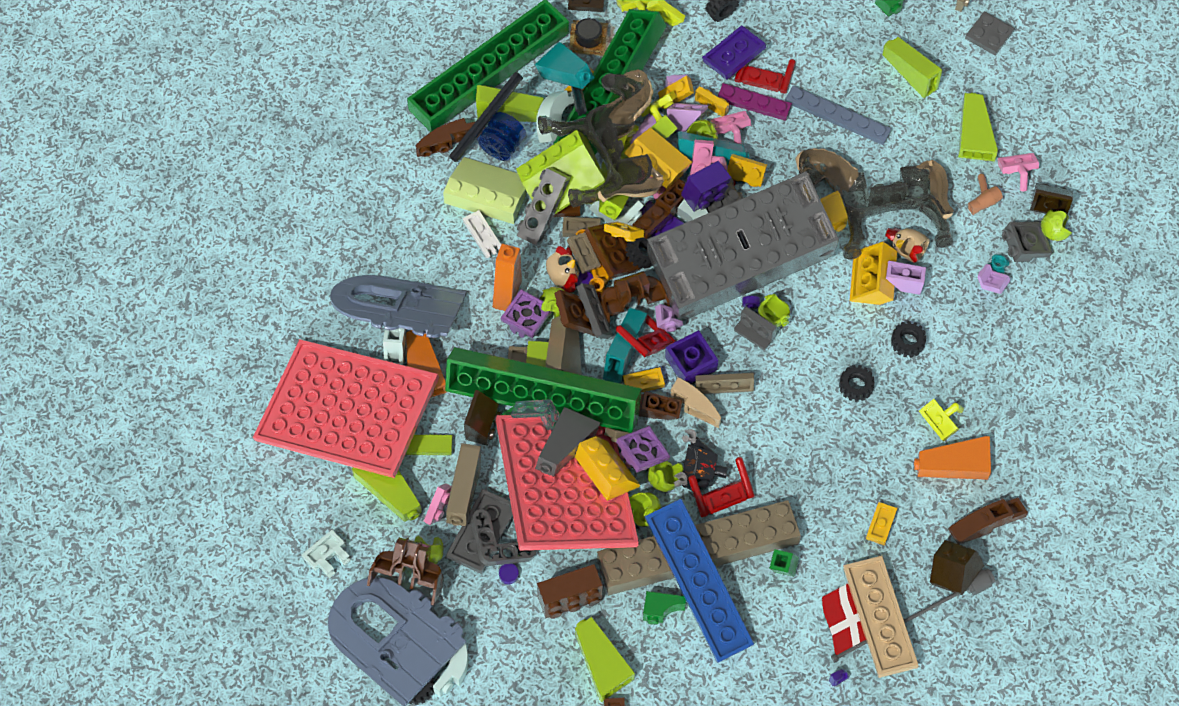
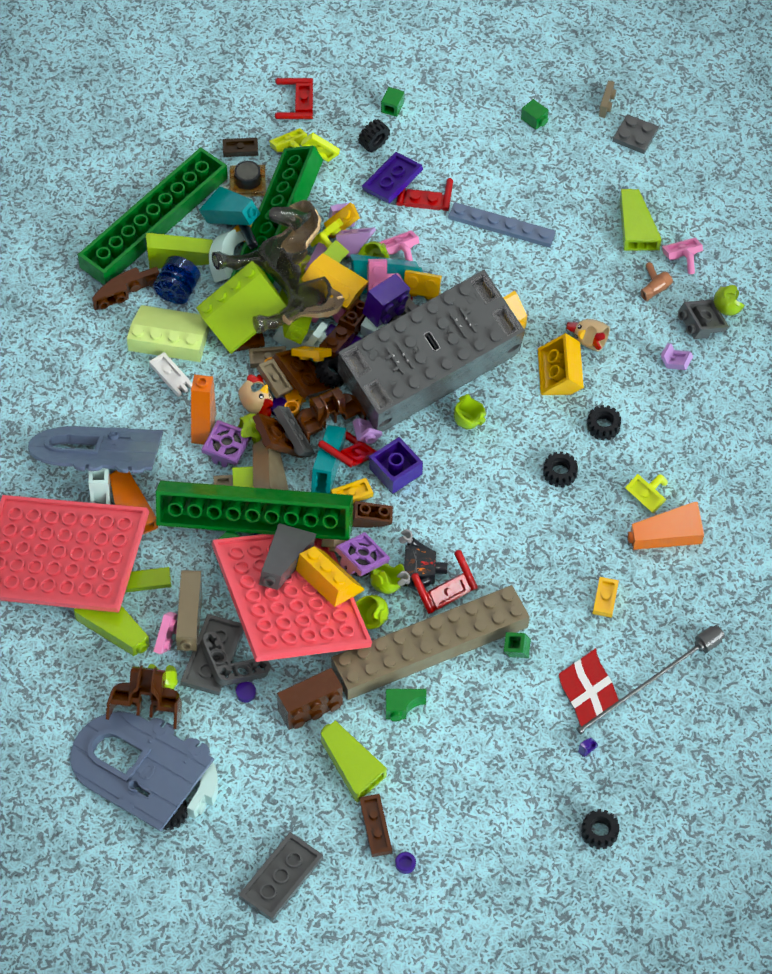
camera: 10 degrees left, 5 degrees down
(324, 550) = (57, 692): light aqua plate -> none
(481, 419) = (196, 547): dark brown slope -> none
(485, 117) = (158, 262): black axle -> none
(537, 408) = (252, 527): clear light blue bracket -> none
(559, 182) = (242, 314): brick -> none
(695, 402) = (406, 506): tan slope -> none
(699, 581) = (437, 671): blue plate -> none
(714, 103) = (382, 227): yellow plate -> none
(725, 383) = (431, 485): dark tan plate -> none
(751, 302) = (445, 406): dark purple tile -> none
(755, 102) = (418, 221): magenta plate -> none
(755, 328) = (454, 430): dark grey bracket -> none
(880, 616) = (619, 683): tan plate -> none
(906, 277) = (593, 364): lavender slope -> none
(913, 66) = (568, 171): lime slope -> none
(914, 191) = (586, 285): clear smoke animal -> none
(955, 567) = (684, 627): dark brown slope -> none
(986, 519) = (706, 579): reddish brown slope -> none
(1001, 260) = (679, 338): teal plate -> none
(1050, 197) = (719, 275): dark brown slope -> none

